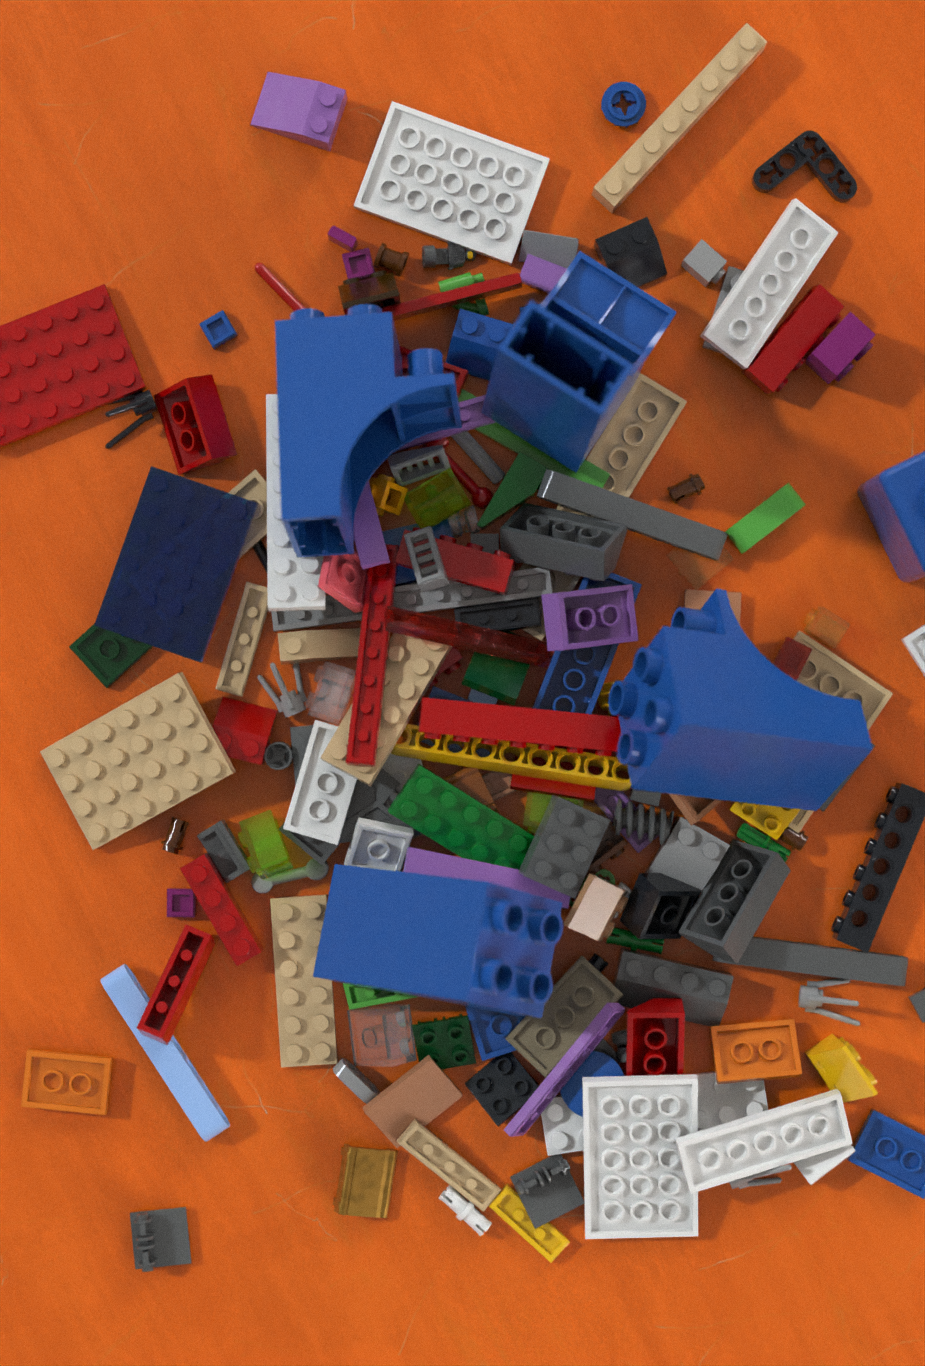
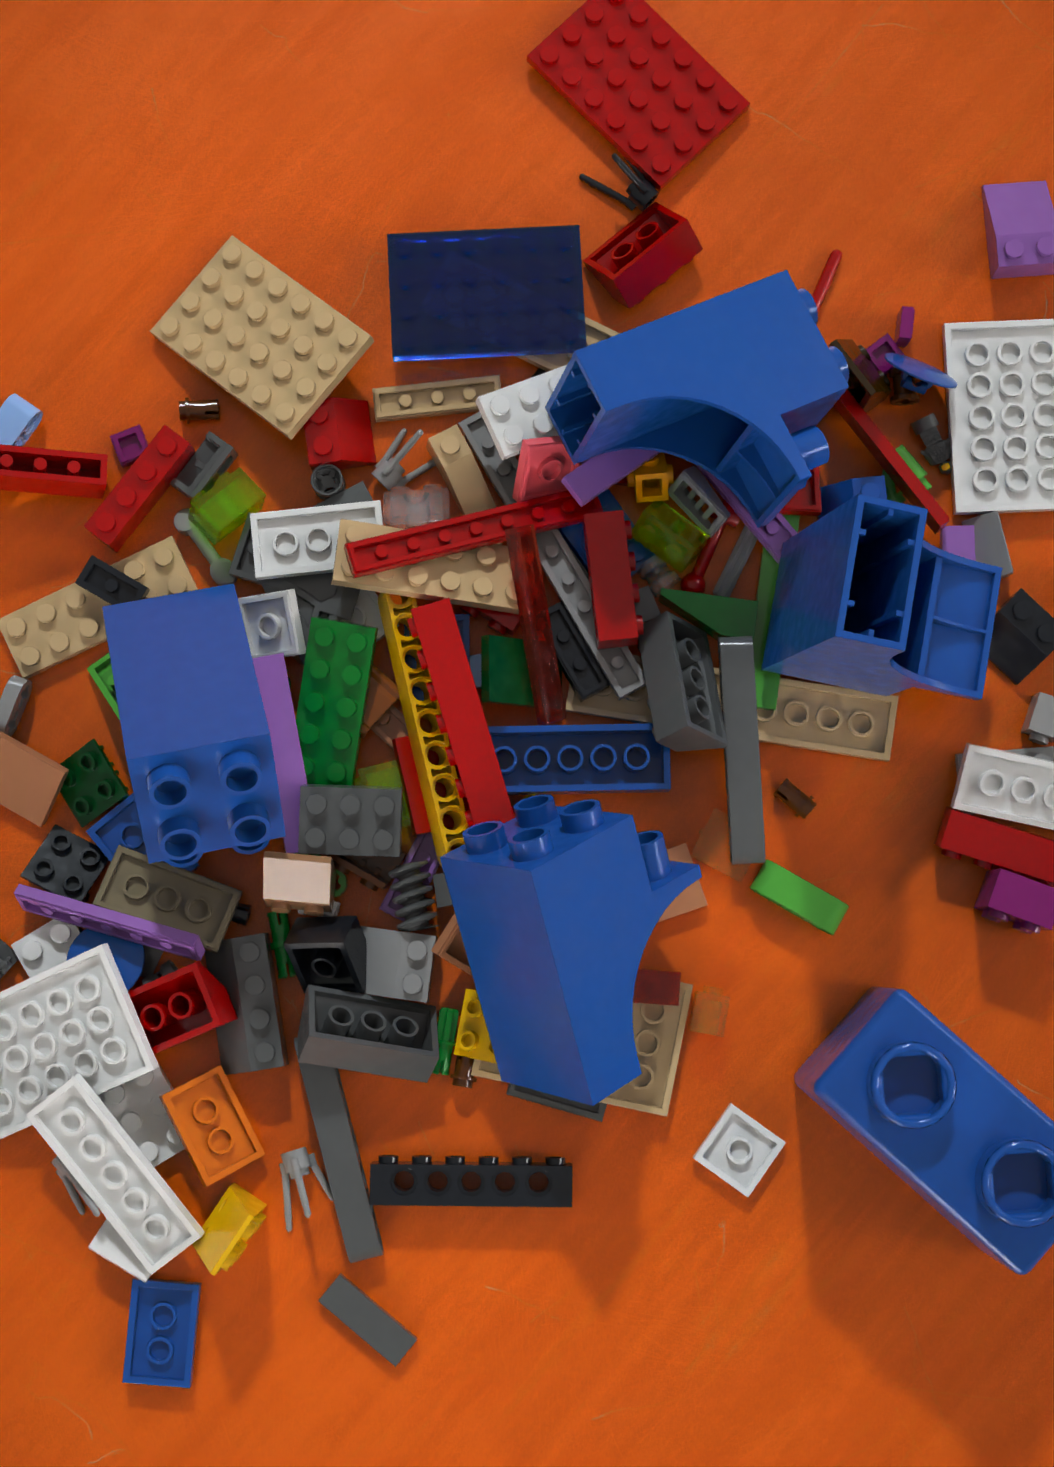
camera: 65 degrees right, 5 degrees down
(108, 653) = (363, 264): dark green tile -> none
(218, 329) = (752, 239): blue tile -> none
(293, 962) = (110, 583): none -> black plate
(382, 1035) = (71, 713): clear slope -> none
(388, 244) = (919, 370): none -> blue shield
(433, 581) = (582, 555): light grey slope -> none
(589, 617) = (611, 745): medium lavender slope -> none

